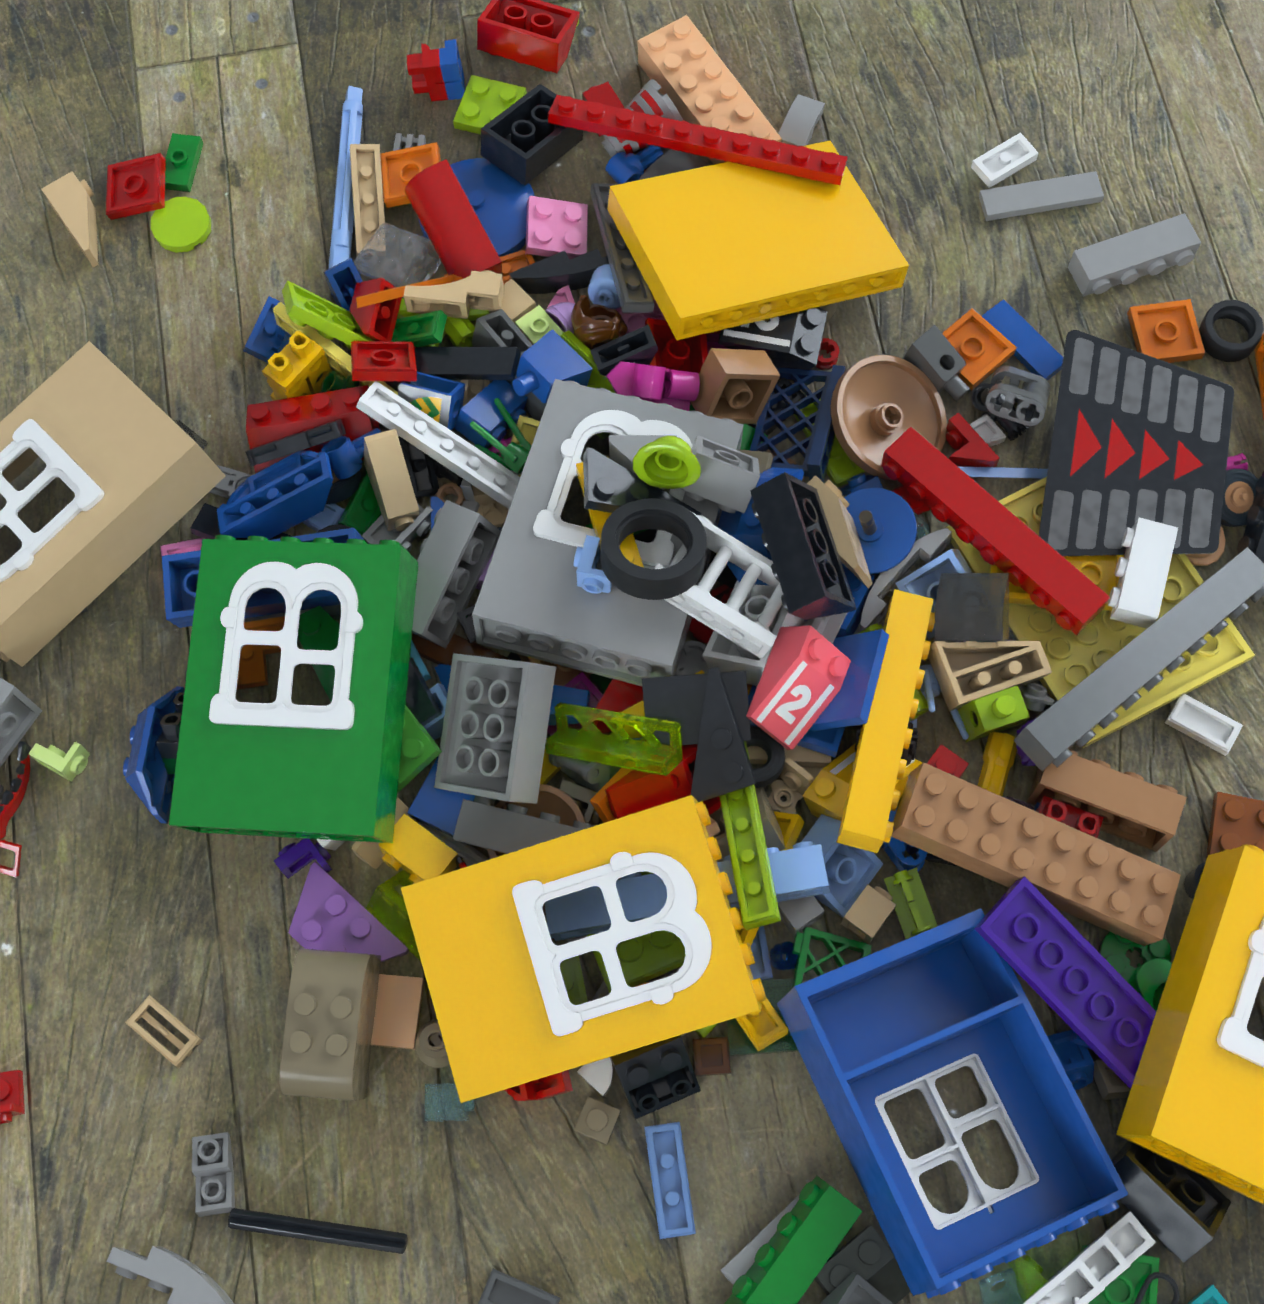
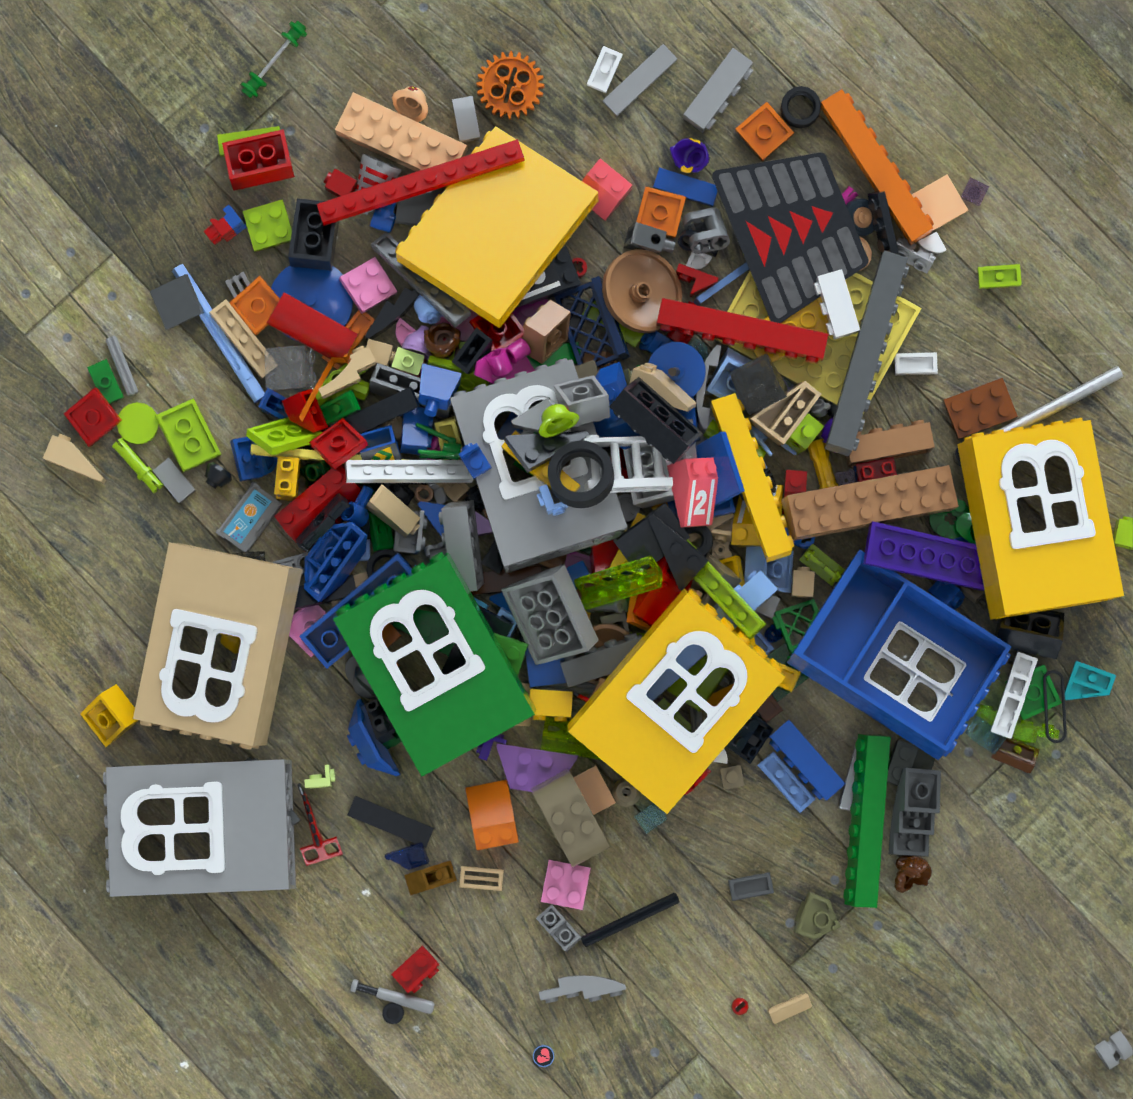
camera: 35 degrees left, 15 degrees up
(94, 936) = (410, 856): none -> clear blue tile
(97, 983) = (430, 877): none -> pearl gold slope
(106, 875) = (390, 821): none -> black tile
(143, 277) = (143, 472): none -> lime pin
(171, 308) = (174, 480): none -> light grey tile
(212, 155) = (121, 365): none -> light grey axle
(221, 328) = (217, 475): none -> black cone
(221, 398) = (248, 517): none -> door
(225, 268) = (188, 435): none -> lime tile
(237, 954) = (491, 815): none -> orange slope
(266, 1119) = (565, 884): none -> bright pink plate
(324, 121) = (176, 302): none -> dark grey tile
(530, 461) = (474, 460): none -> blue bracket
(718, 1167) = (806, 761): none -> blue brick
(747, 64) = (411, 103): none -> light nougat hat
(878, 107) = (492, 80): none -> orange gear
(926, 287) = (611, 188): none -> coral slope
(1052, 303) = (690, 155): none -> dark purple hair

